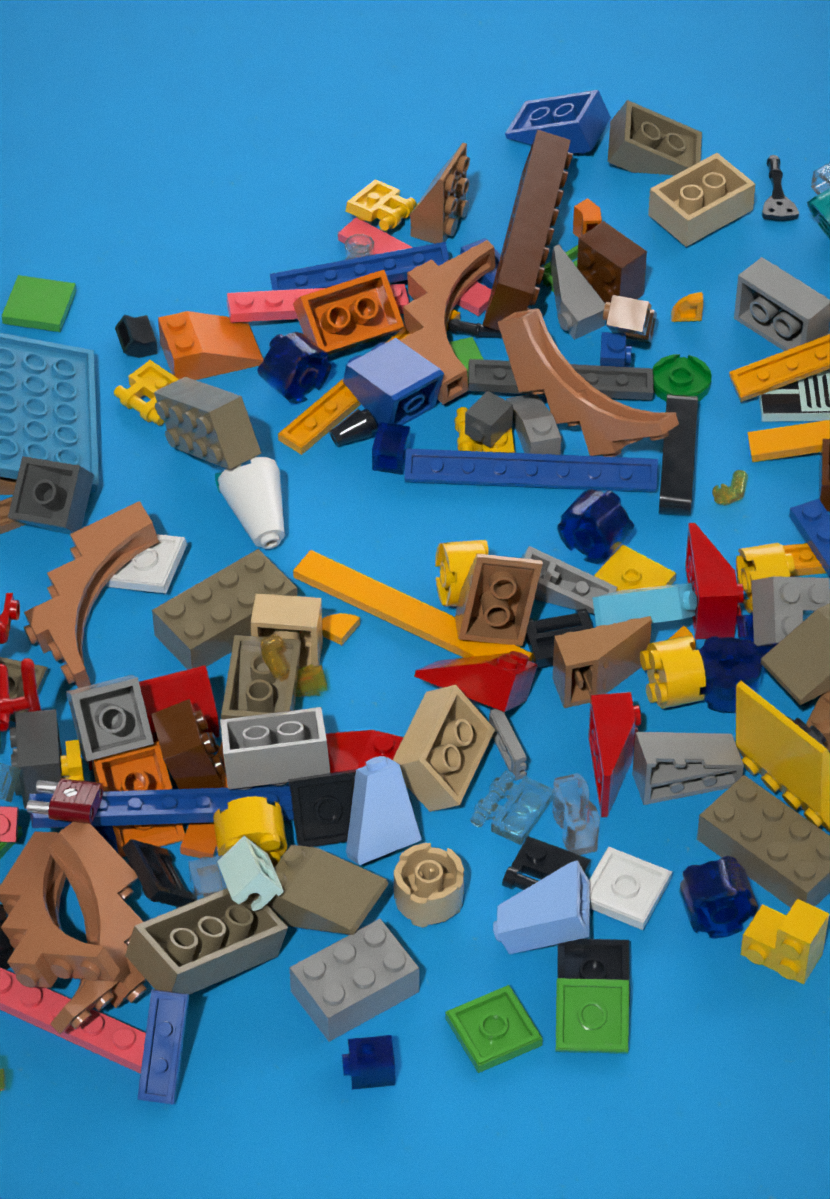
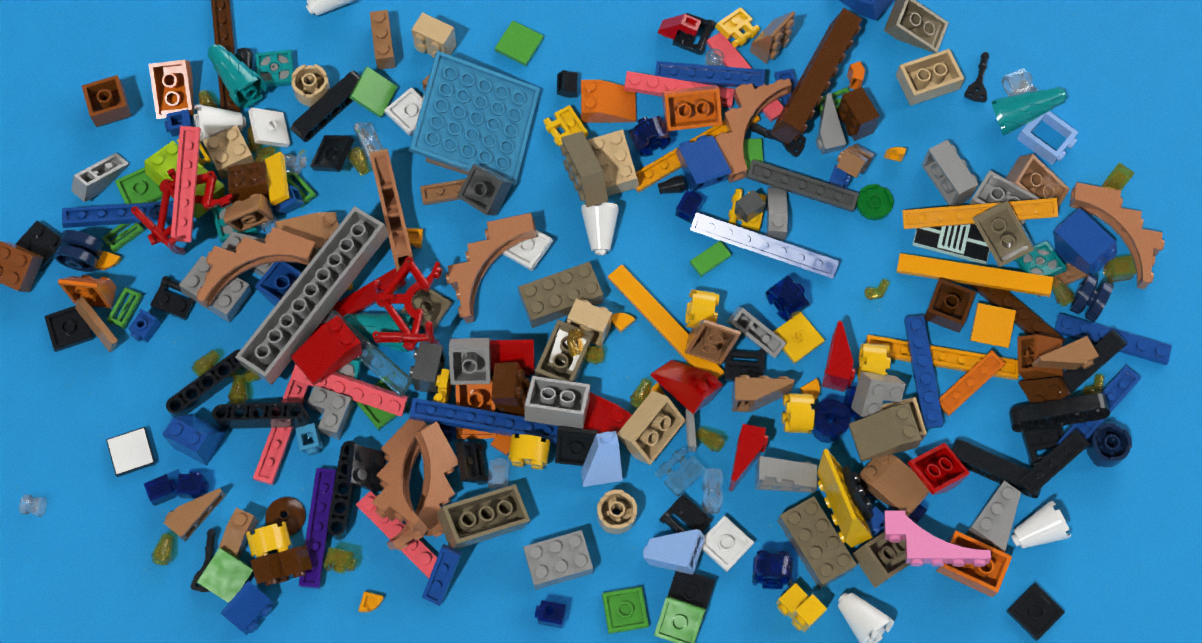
camera: 15 degrees right, 20 degrees up
(49, 1132) = (370, 602): none -> light orange tile
(70, 800) = (434, 411): dark red piece -> none
(249, 871) = (518, 483): light aqua hinge -> none
(271, 421) = (615, 161): none -> tan brick
(275, 227) = (682, 22): none -> red slope
(305, 228) = (686, 41): none -> black plate
(324, 891) = (555, 501): dark tan slope -> none
(405, 712) = (640, 393): none -> clear yellow cone
(451, 510) = (710, 258): none -> bright green tile
(546, 749) = (710, 439): none -> clear yellow cone
(571, 399) = (816, 228): nougat arch -> none
(659, 602) = (795, 365): medium azure slope -> none
(679, 457) = (853, 258): black beam -> none

